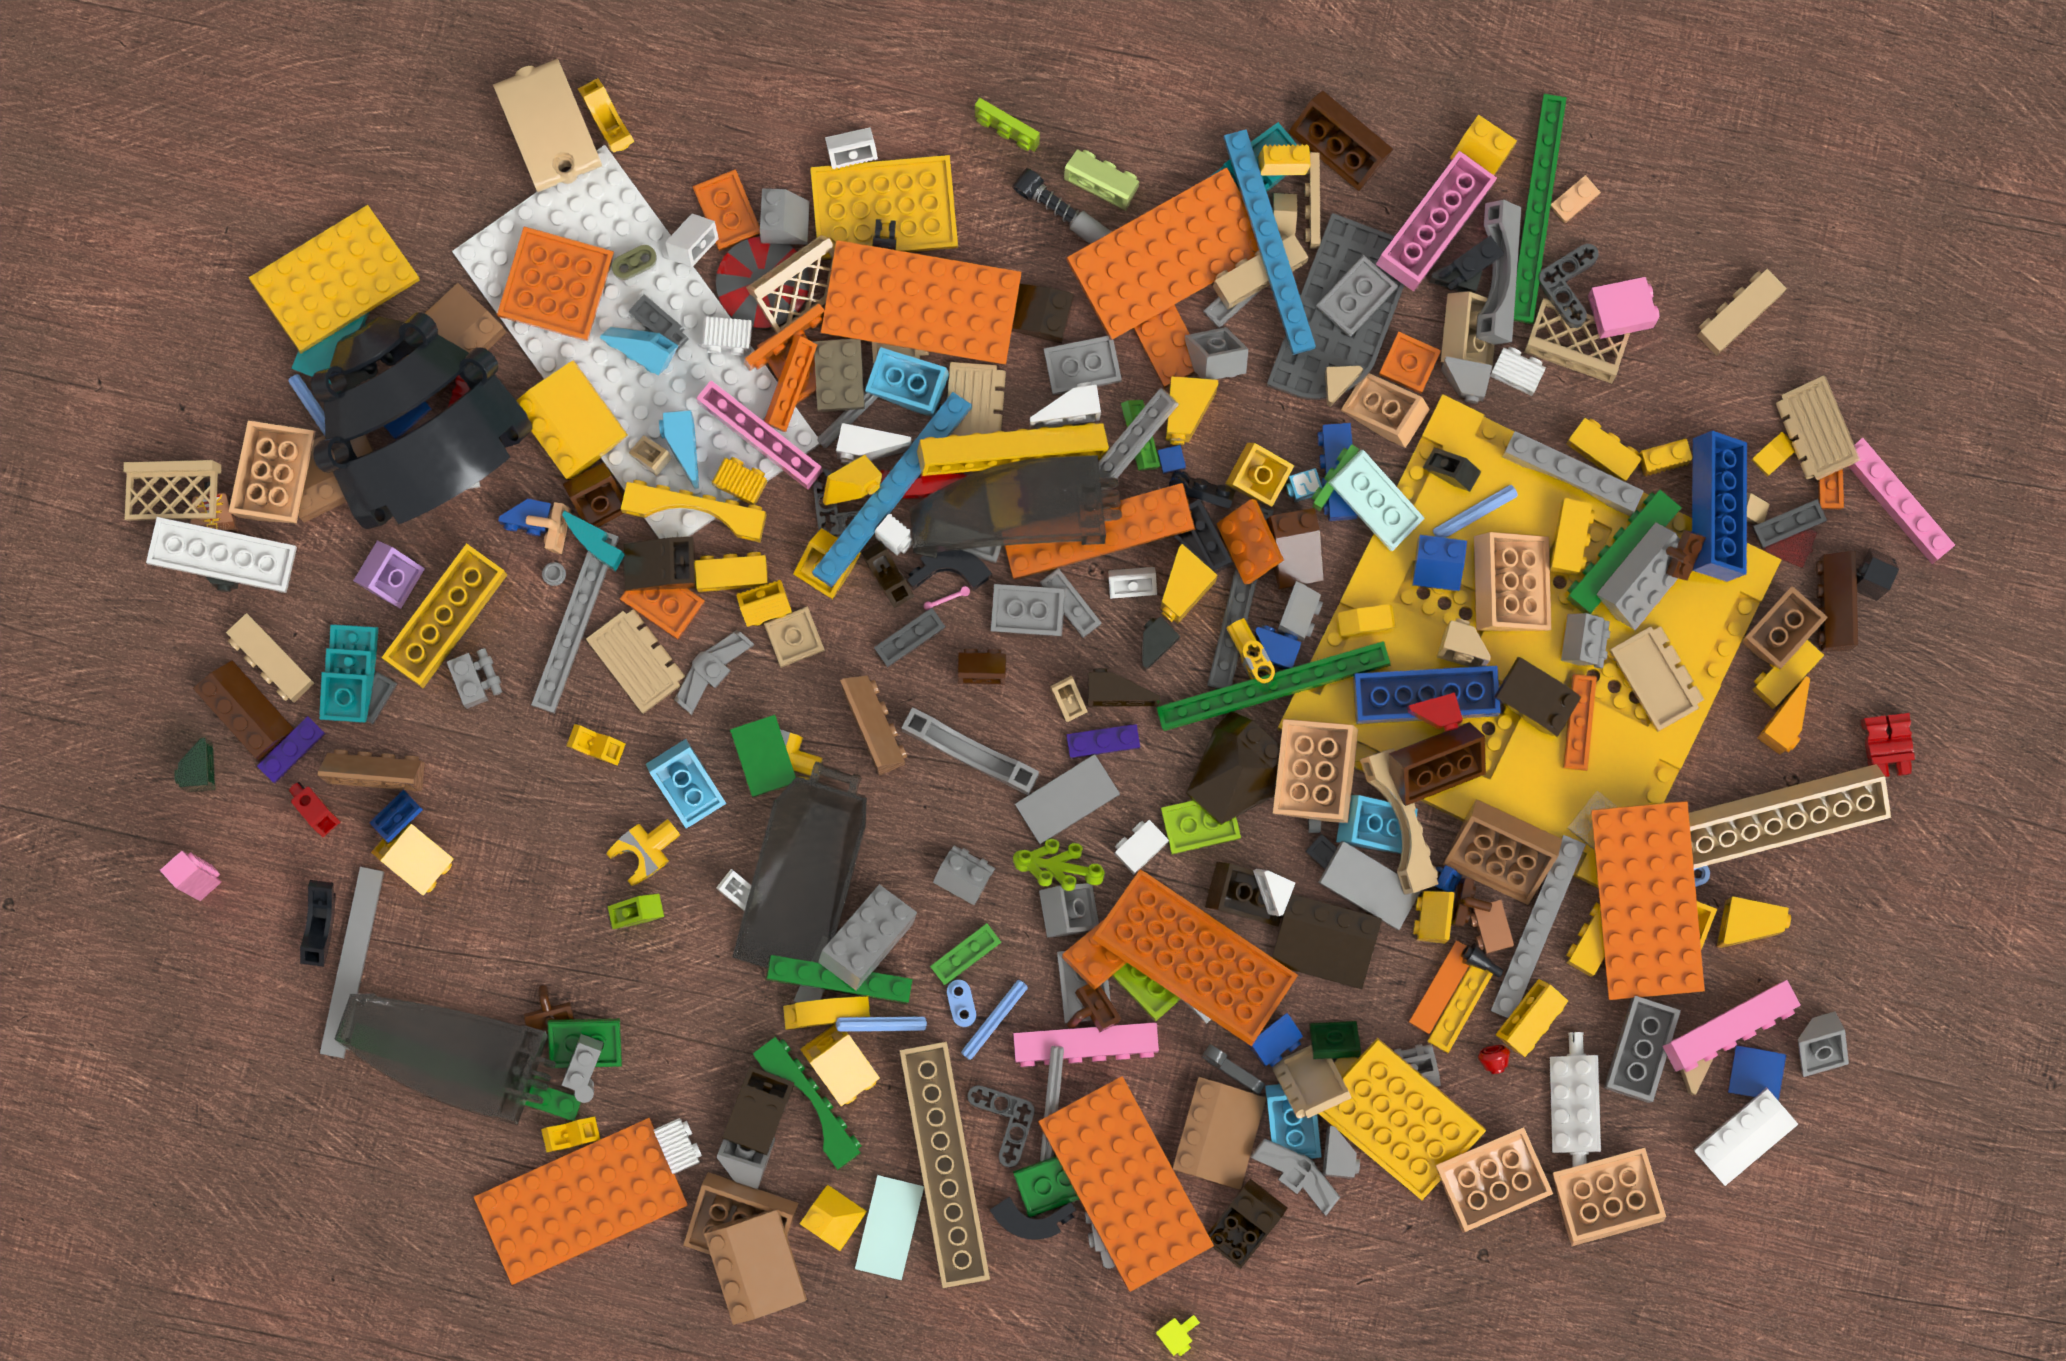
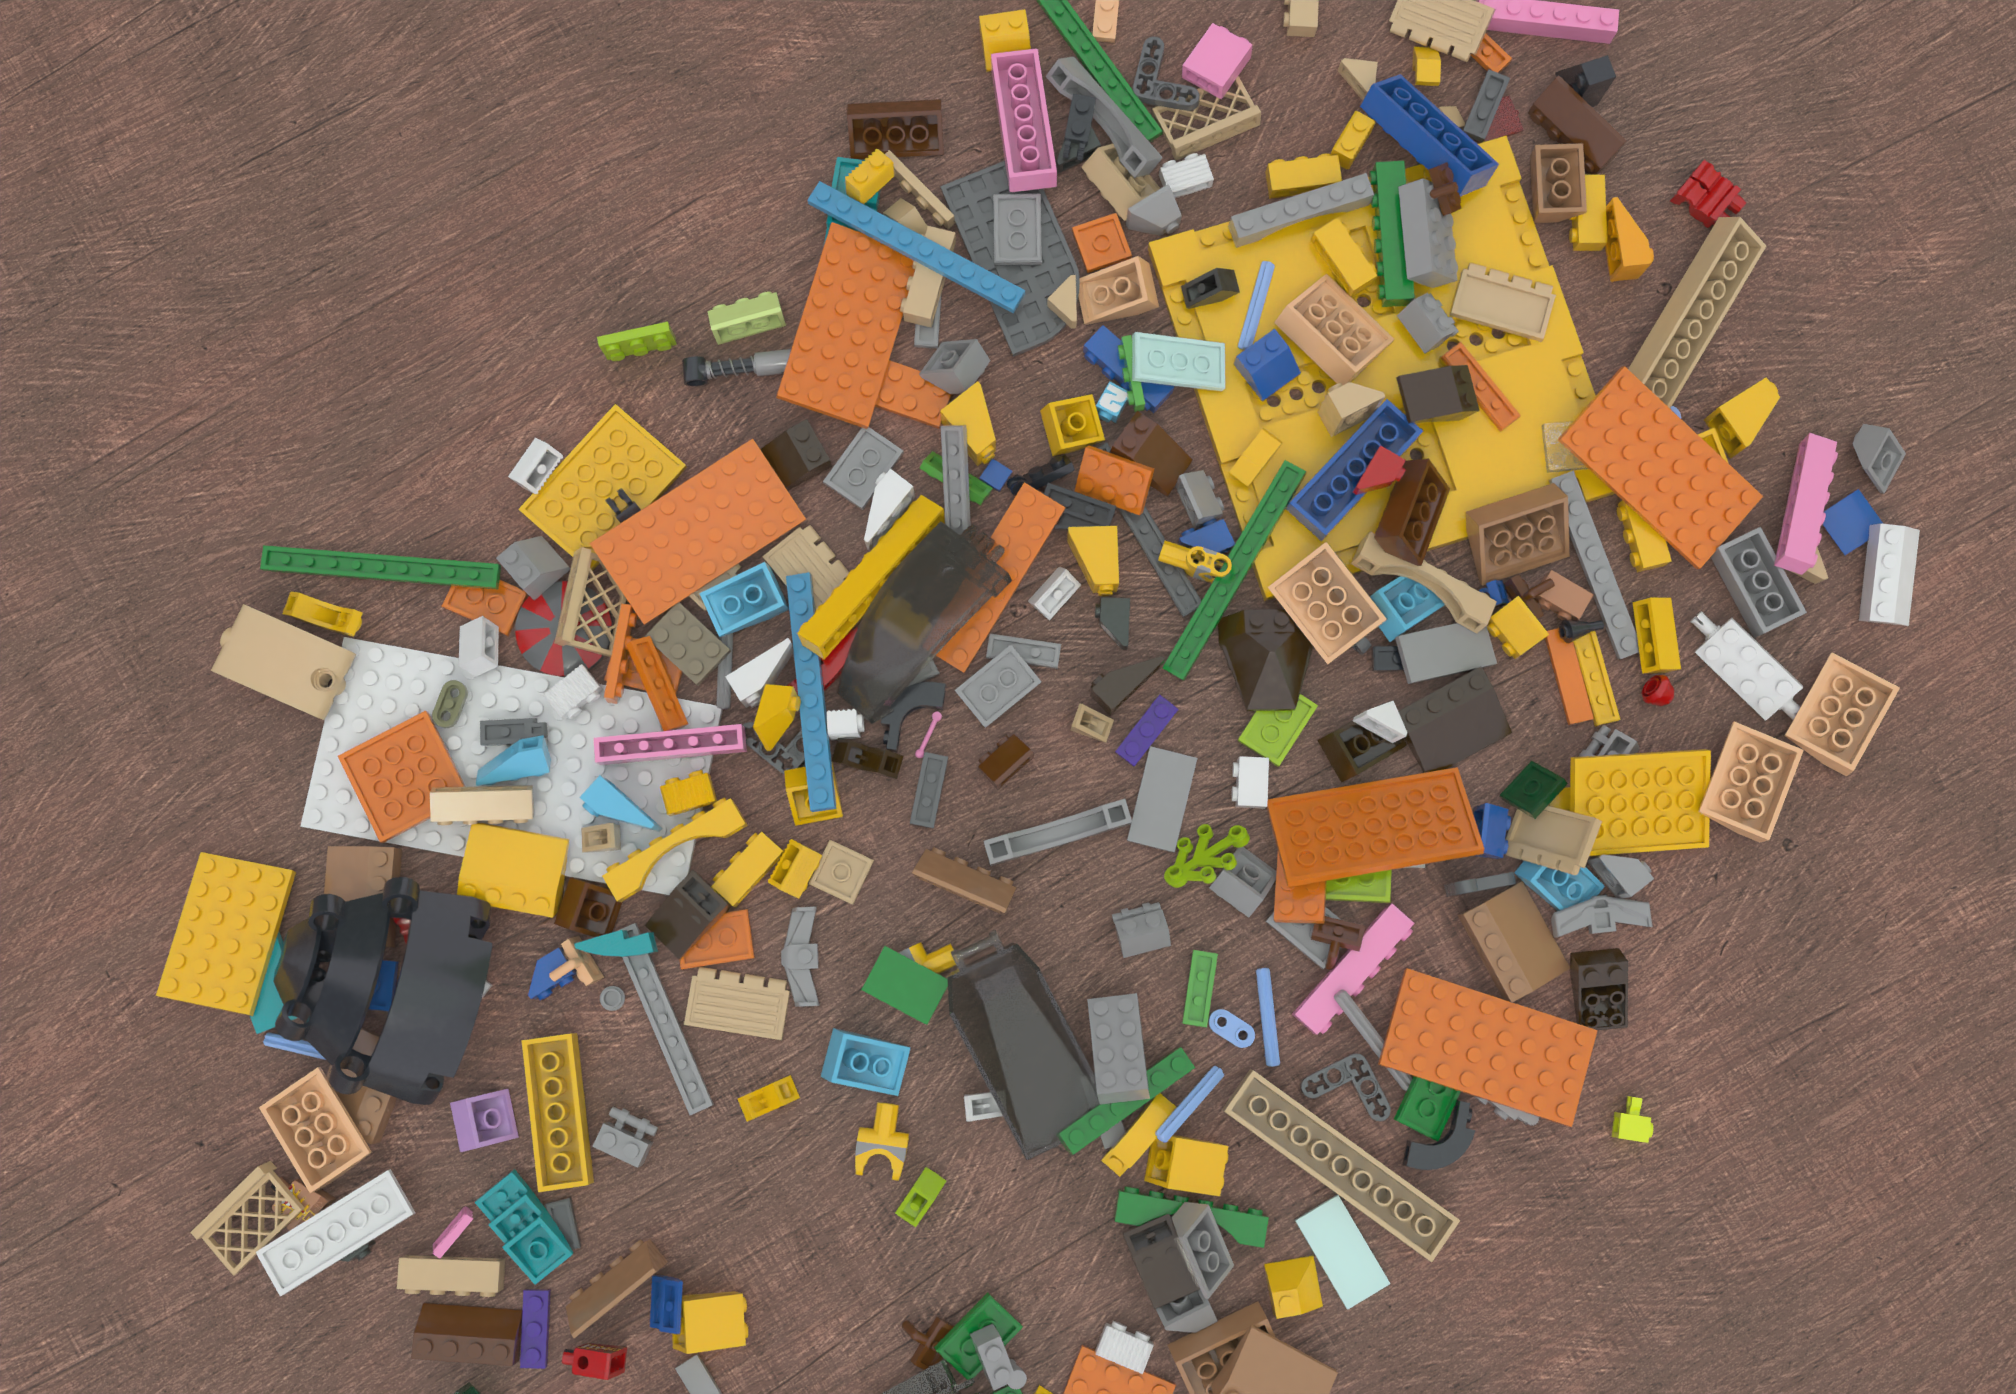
camera: 40 degrees left, 0 degrees up
(297, 630) = (452, 1232): none -> bright pink tile
(591, 353) = (481, 803): none -> tan brick
(676, 119) = (380, 567): none -> green plate
(796, 1125) = (1203, 1245): none -> light grey slope
(1719, 414) = (1358, 74): none -> tan slope

